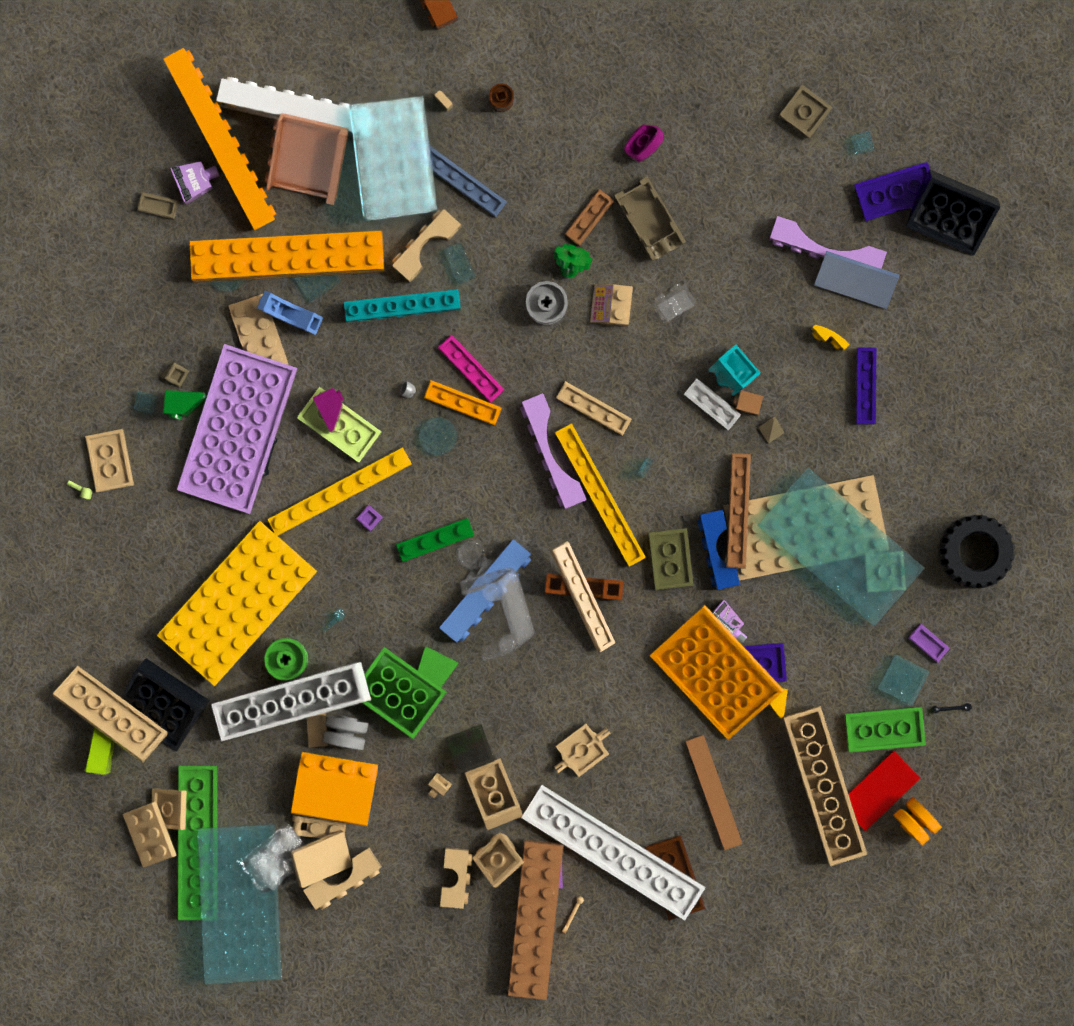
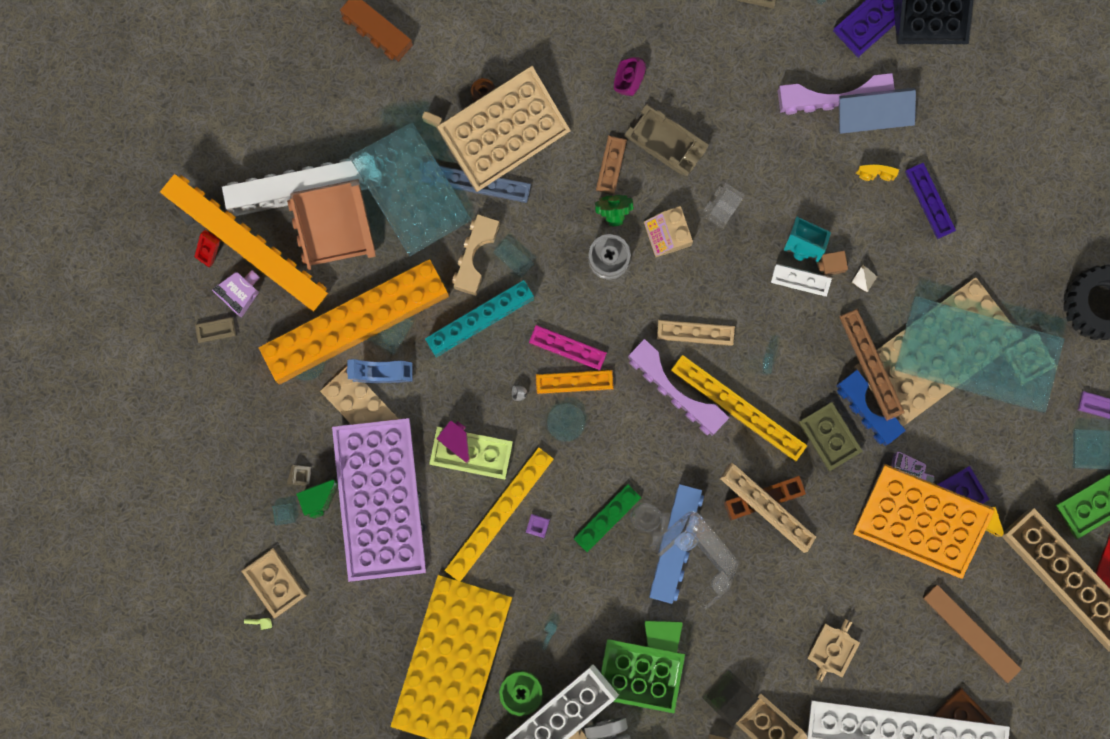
camera: 30 degrees left, 5 degrees down
(183, 127) = (207, 248): none -> red plate
(504, 140) = (503, 128): none -> tan plate

